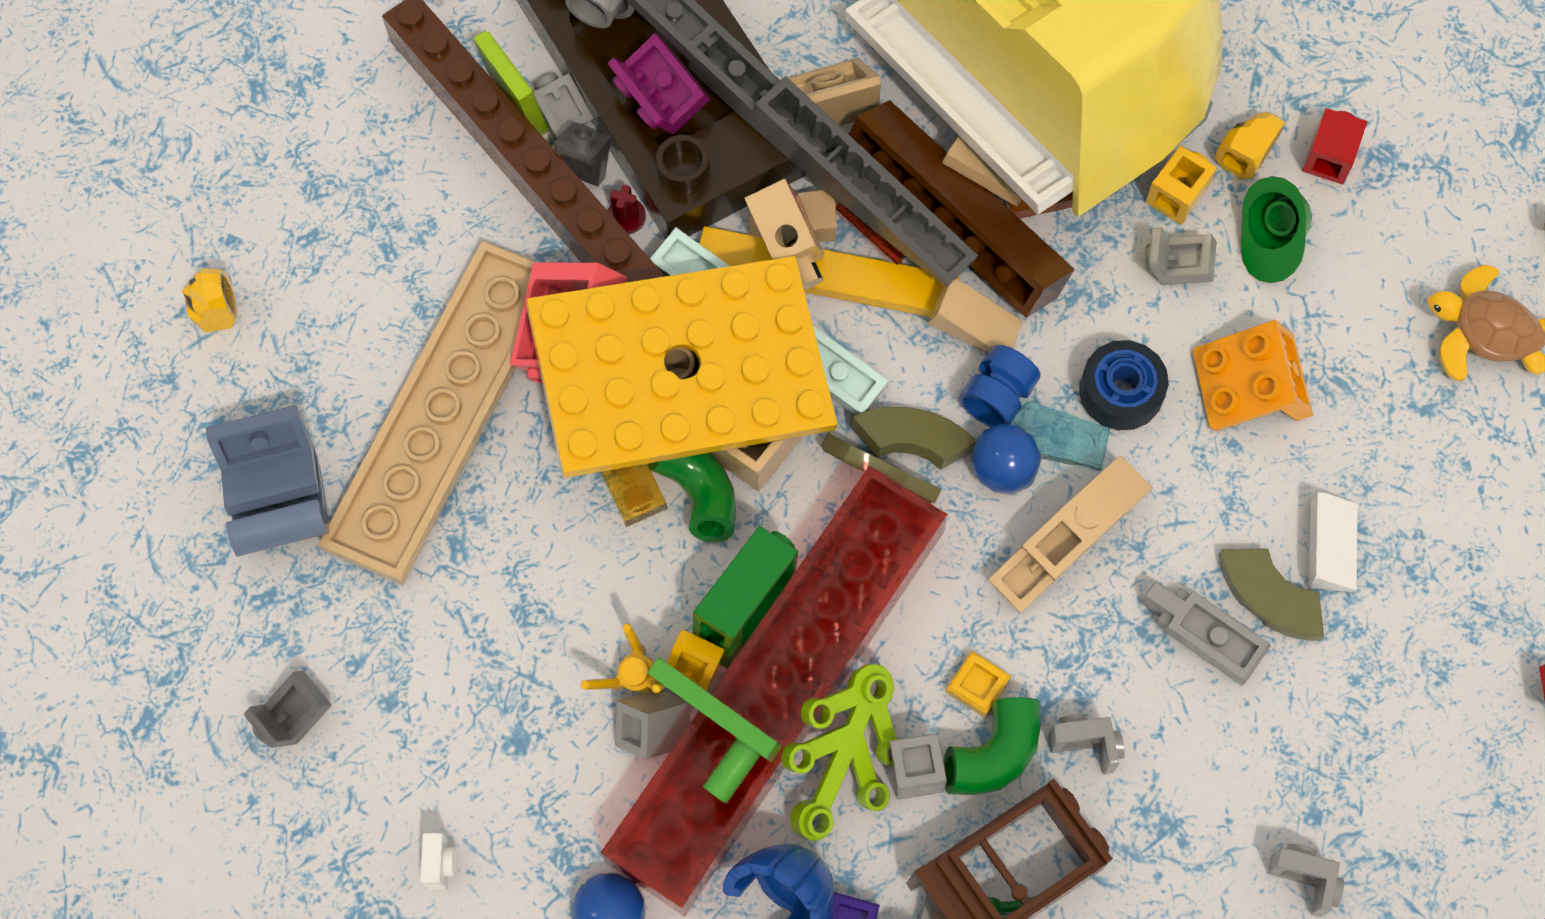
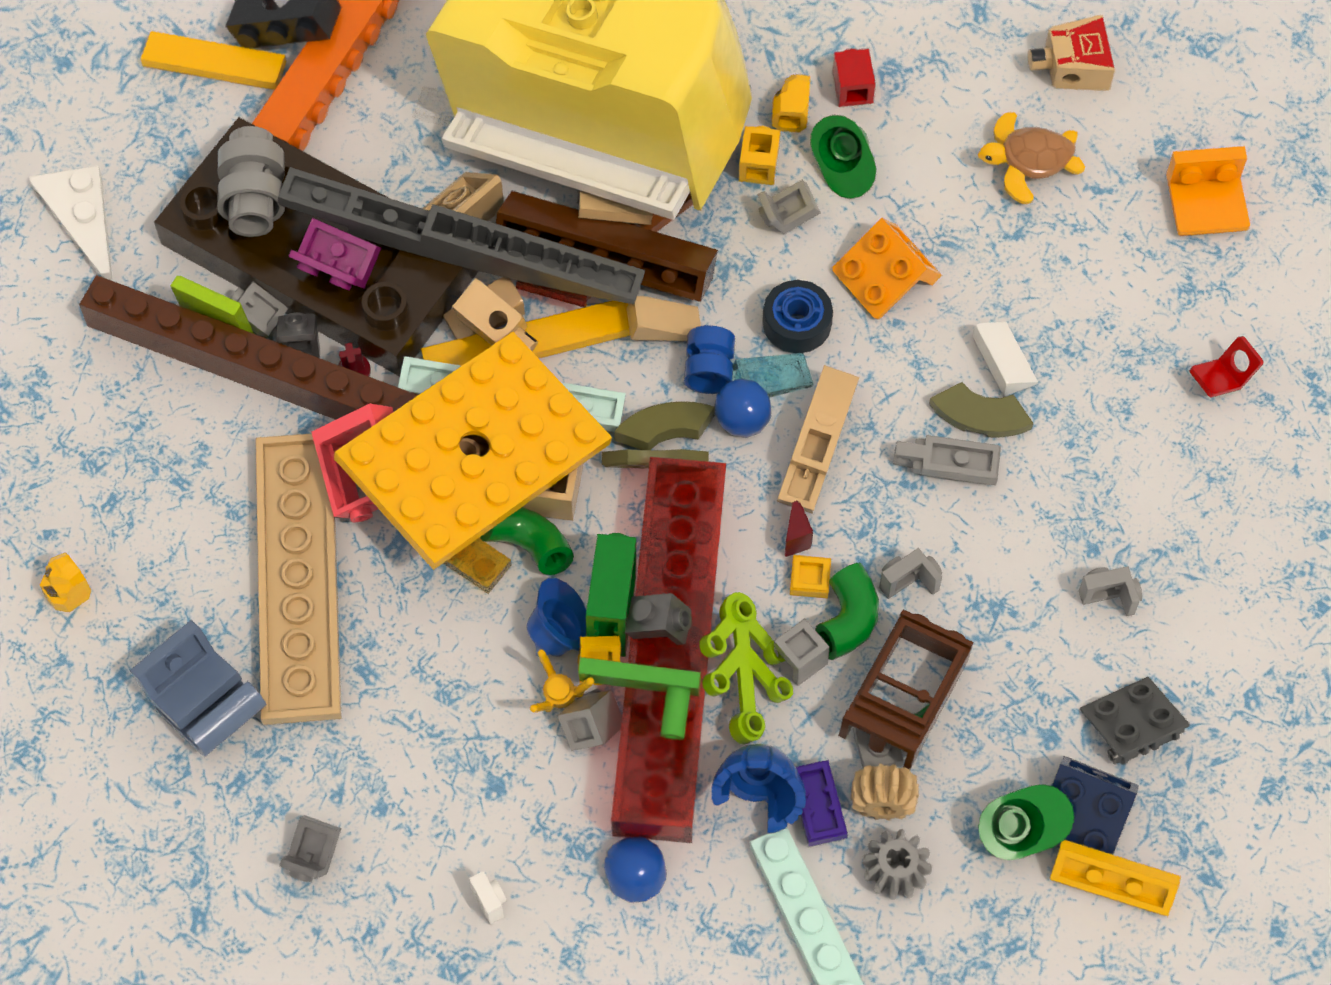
camera: 30 degrees left, 5 degrees down
(675, 590) = (557, 618): none -> blue piece
(774, 654) = (659, 617): none -> flat silver bracket
(990, 627) = (799, 531): none -> dark red slope

